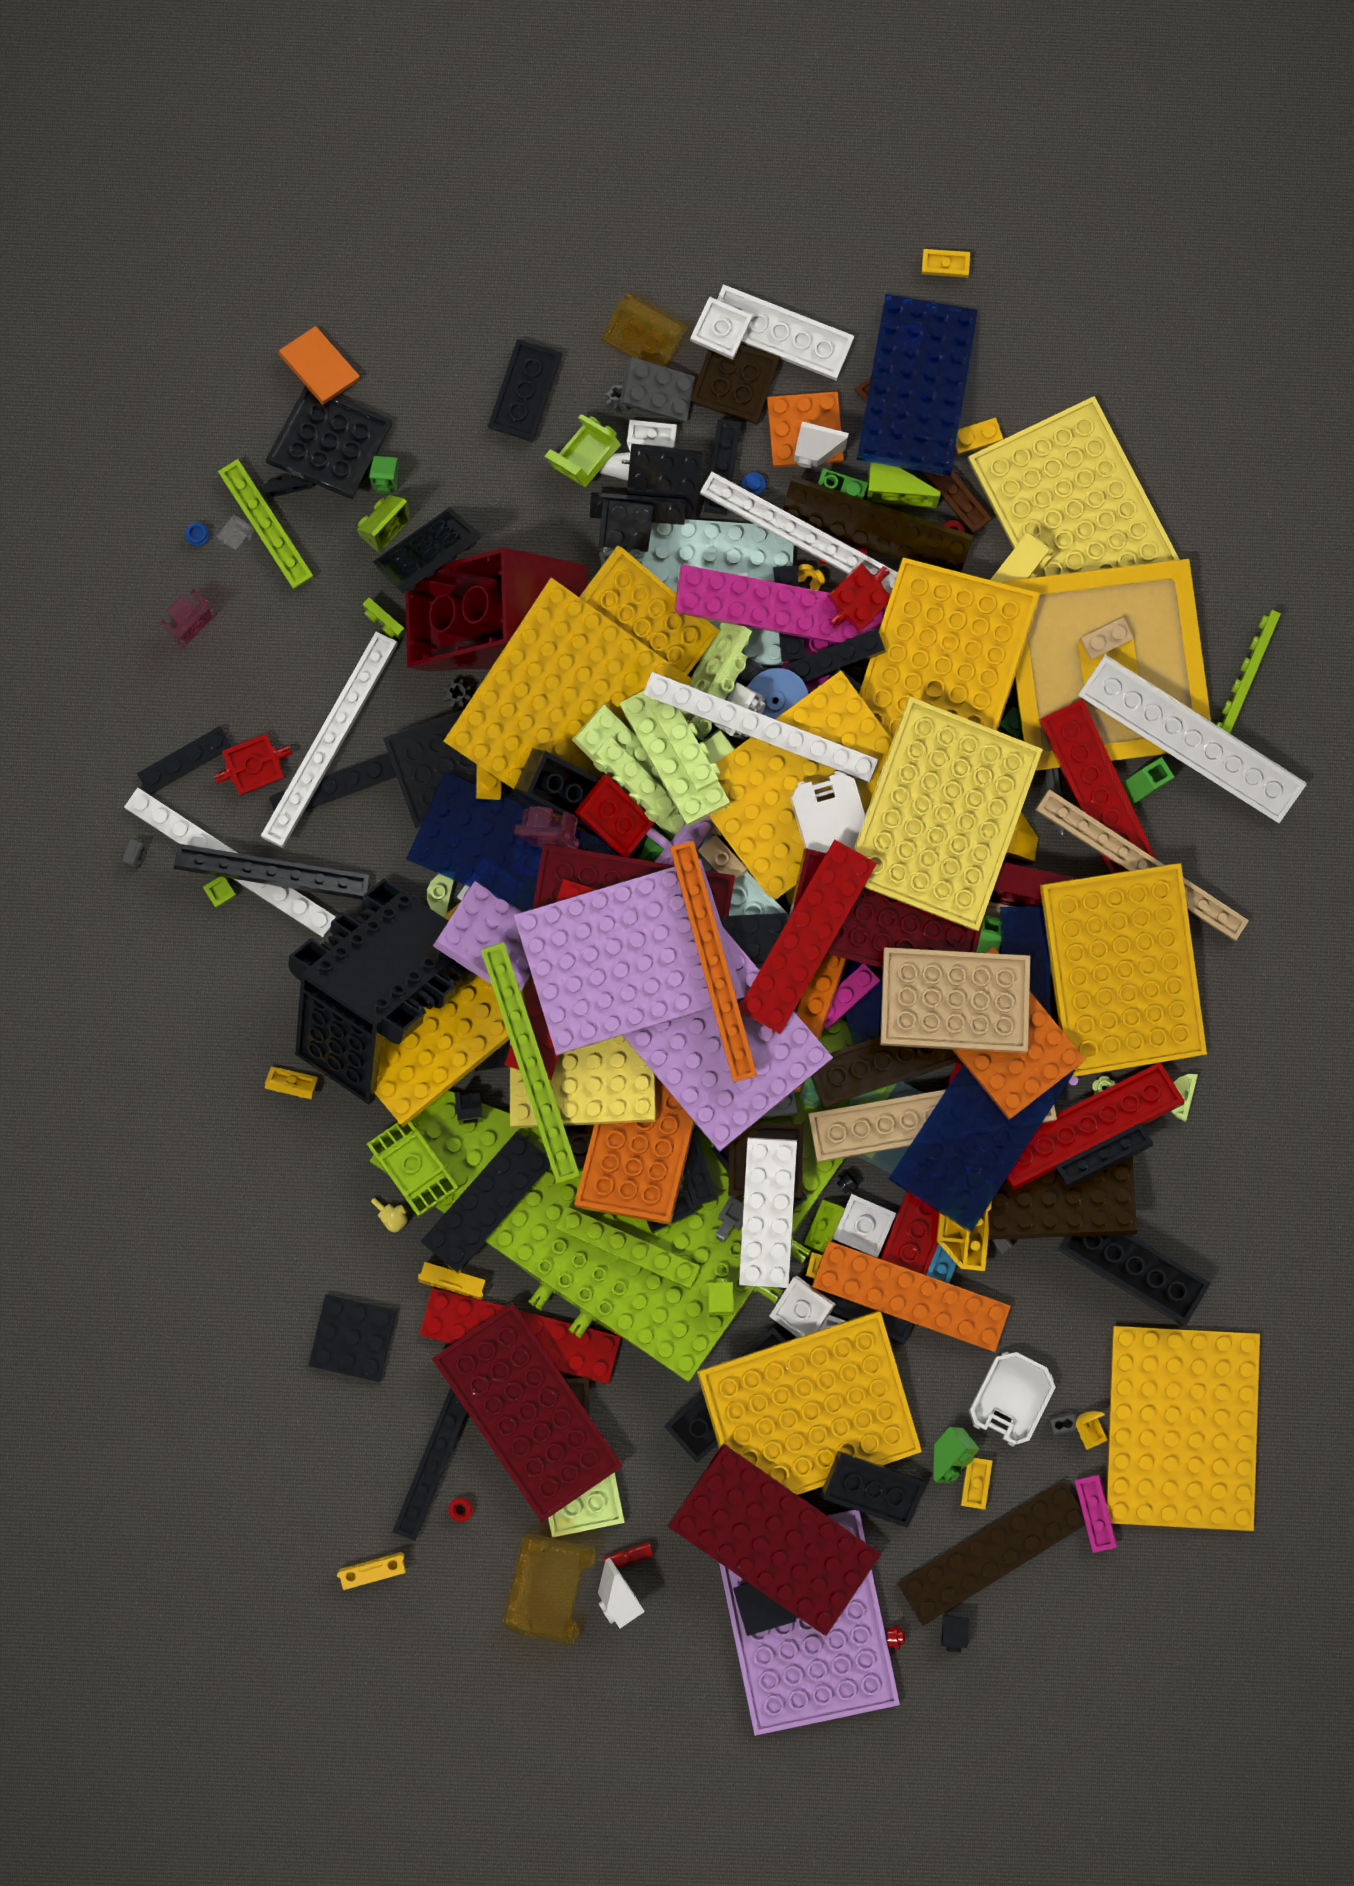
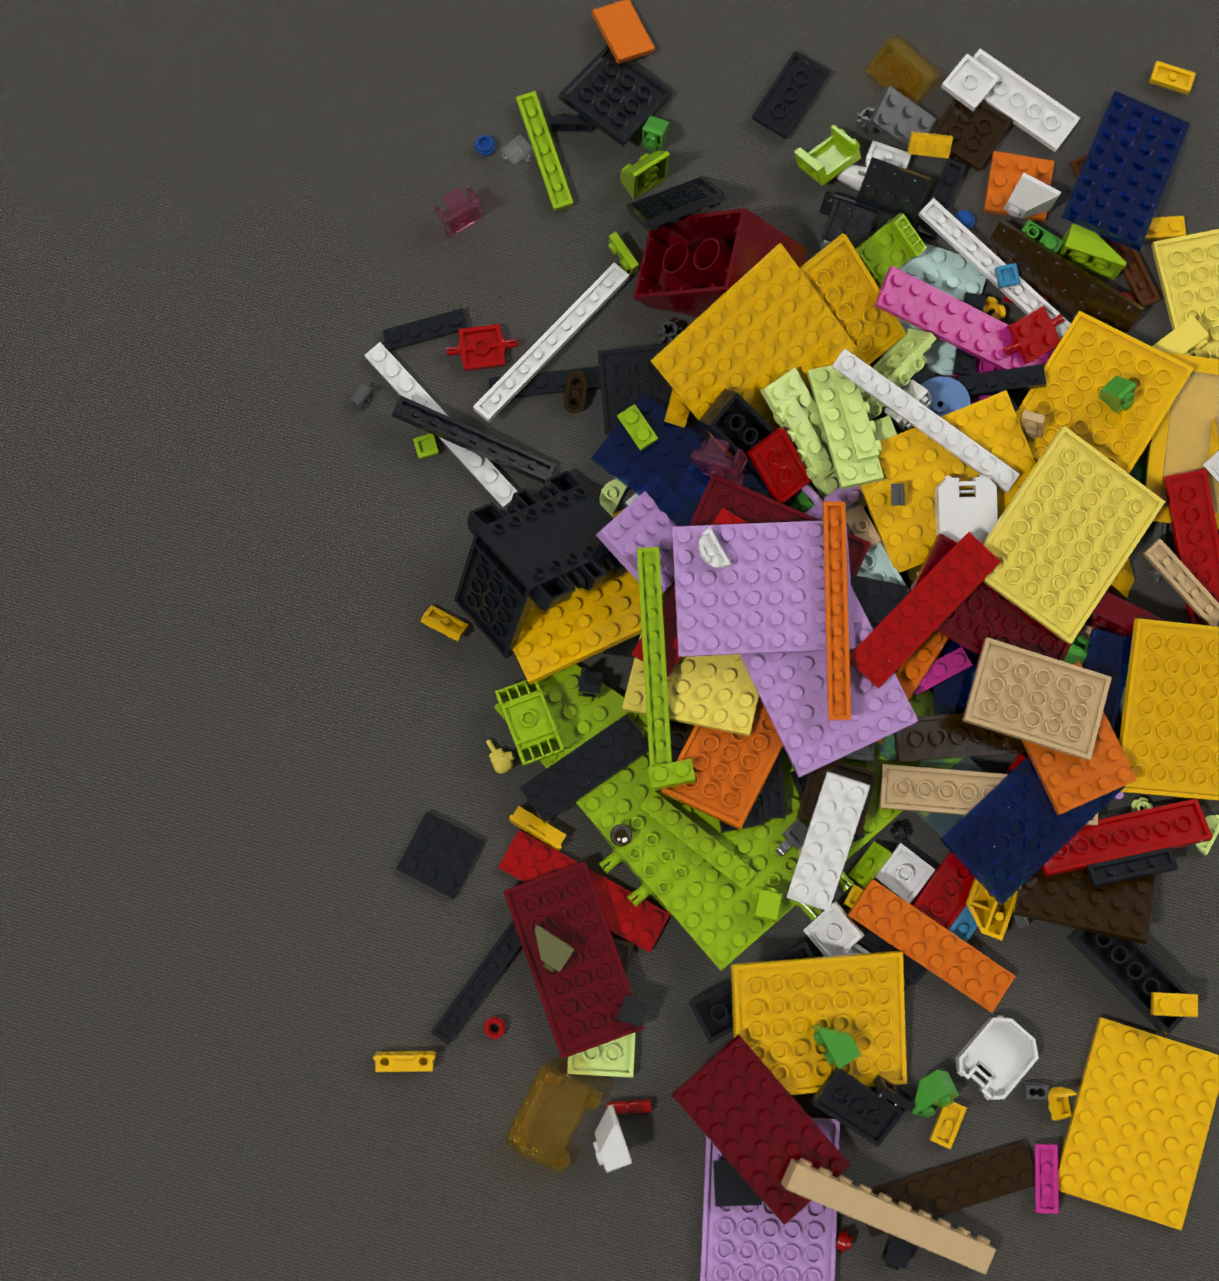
camera: 15 degrees right, 0 degrees up
(368, 788) = (575, 390): none -> dark brown plate
(448, 813) = (637, 427): none -> lime plate
(501, 1407) = (552, 950): none -> olive slope
(544, 1264) = (621, 835): none -> dark brown tile
(562, 931) = (711, 550): none -> white plate
(581, 1184) = (671, 774): none -> lime plate
(605, 1450) = (633, 1011): none -> black piece
(675, 543) = (890, 247): none -> lime plate
(693, 410) = (929, 144): none -> yellow plate
(750, 816) = (897, 494): none -> dark grey piece
(814, 538) = (1007, 275): none -> dark azure tile
(833, 1428) = (837, 1044): none -> bright green slope
(879, 700) = (1032, 424): none -> tan plate
(914, 1467) = (890, 1091): none -> black plate
(934, 1596) = (888, 1216): none -> tan brick
(964, 644) = (1118, 394): none -> bright green slope
(1184, 1291) = (1174, 1004): none -> yellow plate

